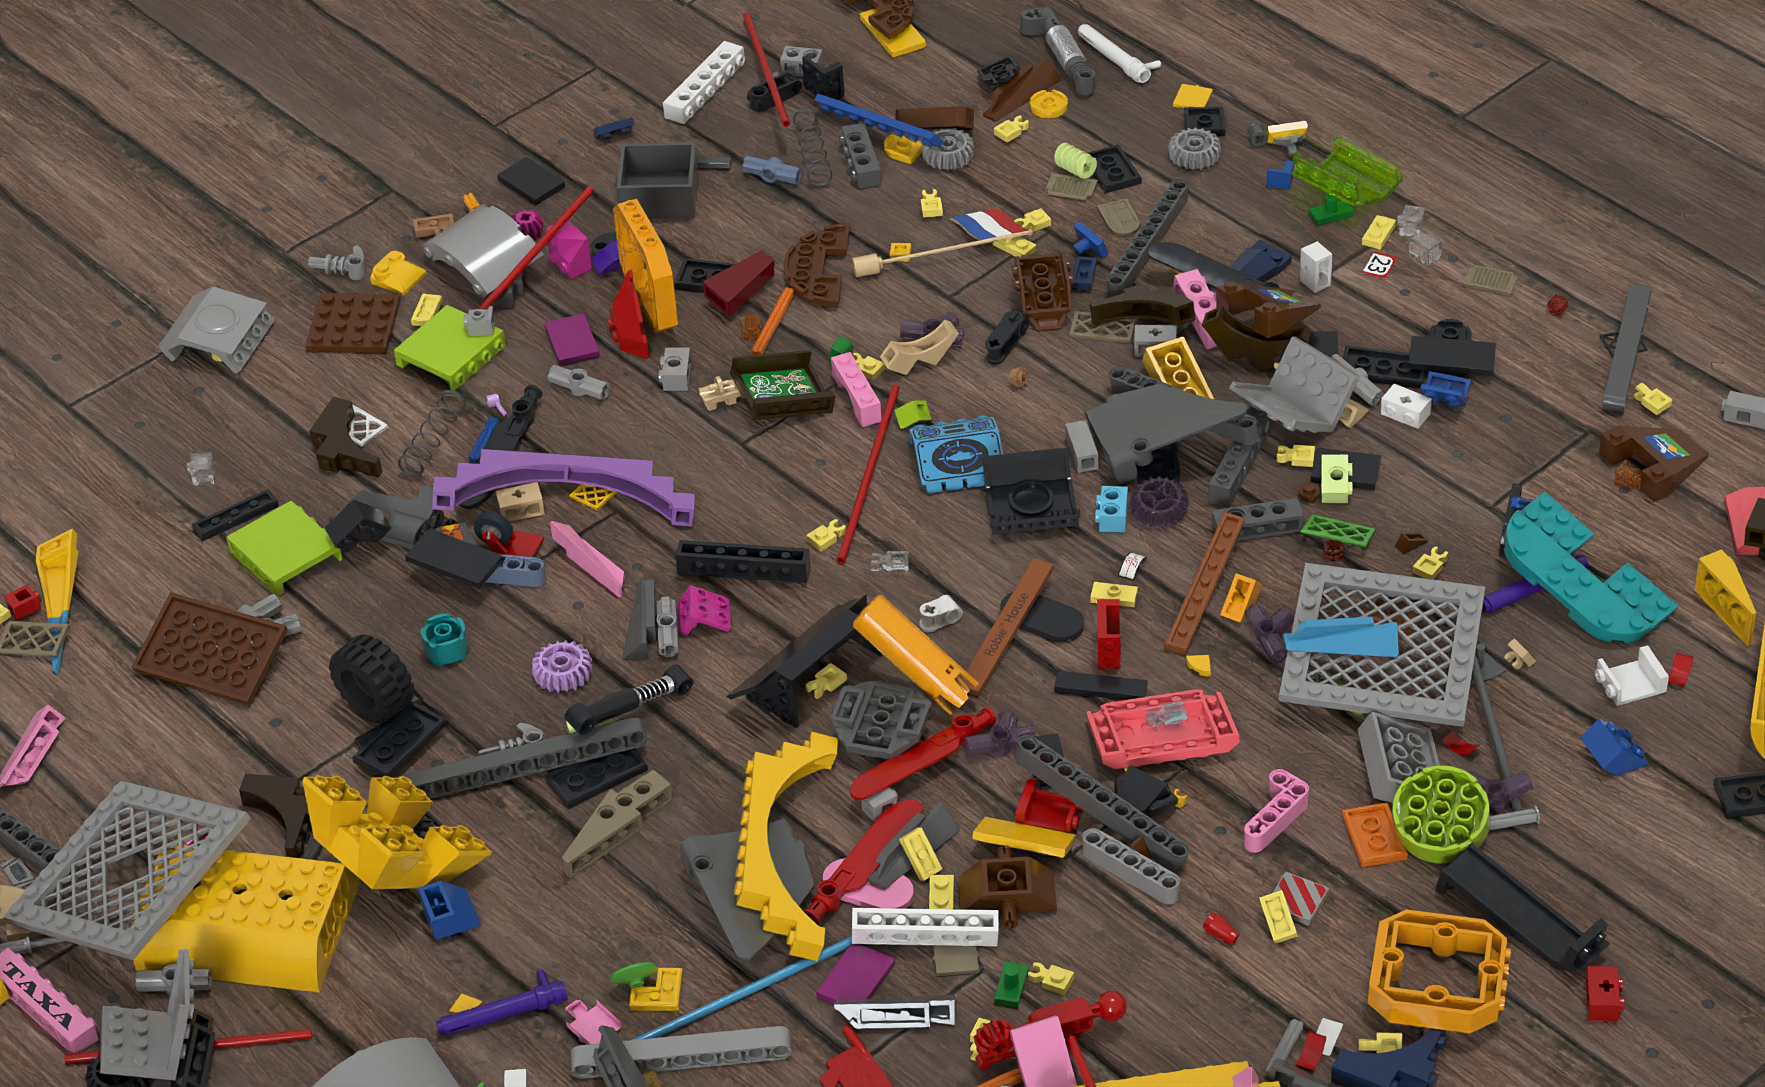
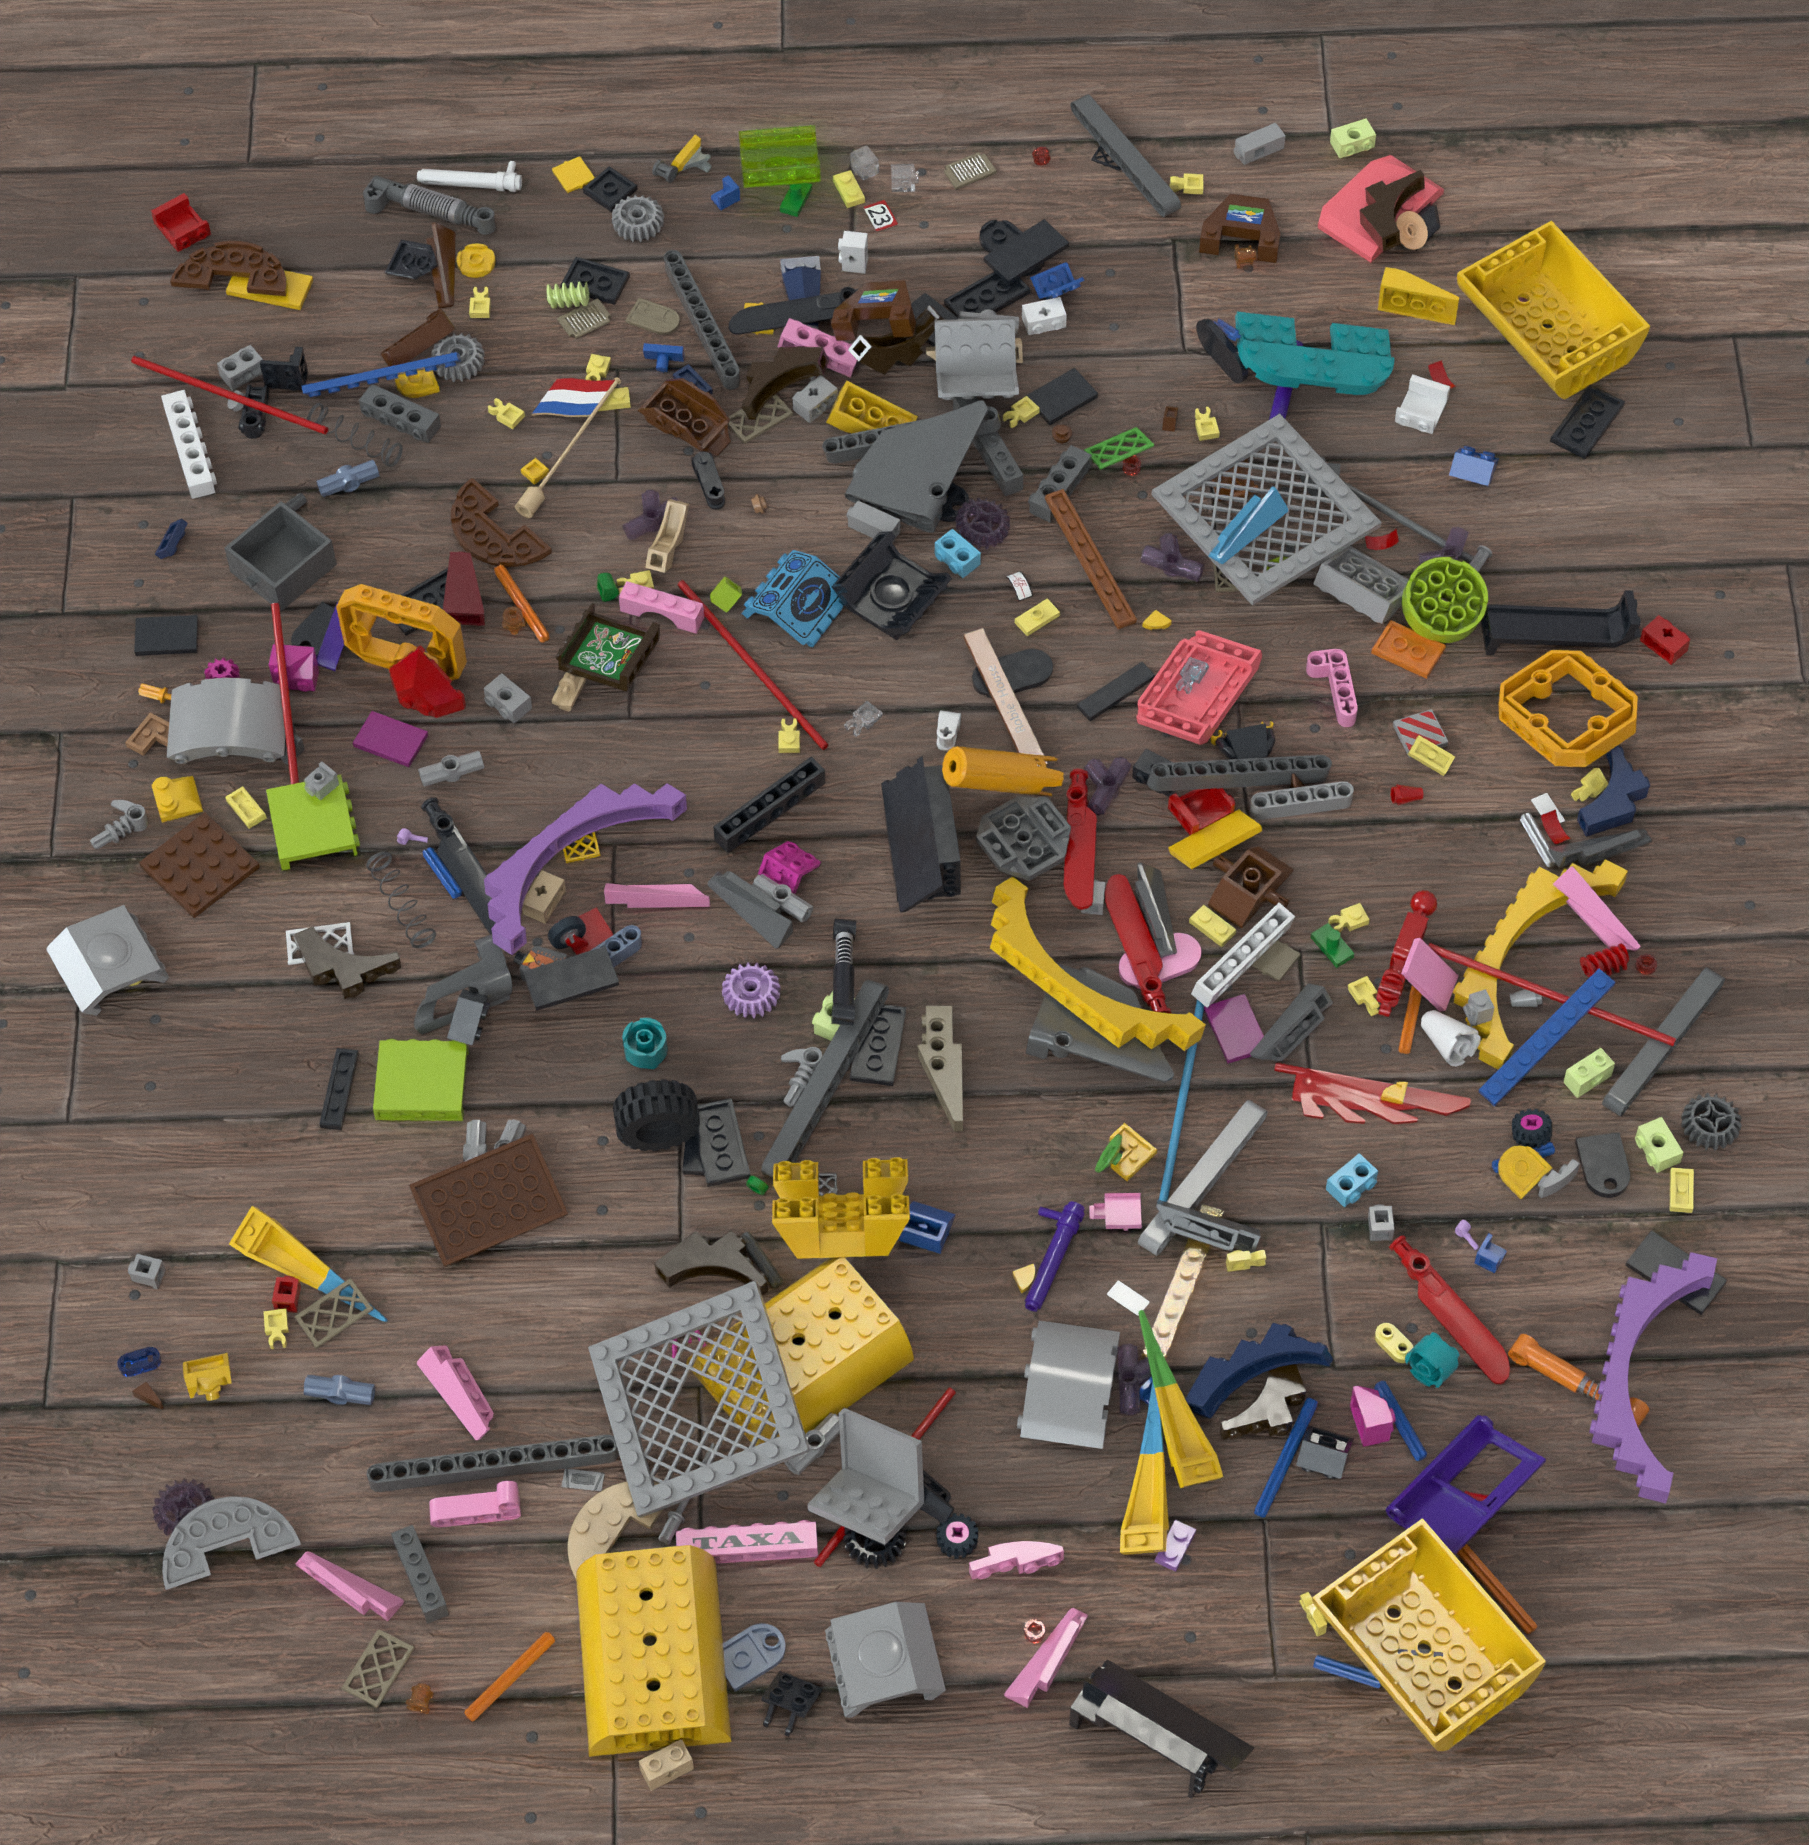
camera: 50 degrees left, 15 degrees up
(202, 468) = (263, 1075): clear brick -> none
(920, 854) = (1172, 908): light yellow plate -> none
(1108, 634) = (1080, 653): red panel -> none
(1241, 596) = (1125, 550): light orange arch -> none
(1336, 490) = (1075, 420): yellowish green brick -> none
(1520, 654) = (1340, 444): tan tile -> none

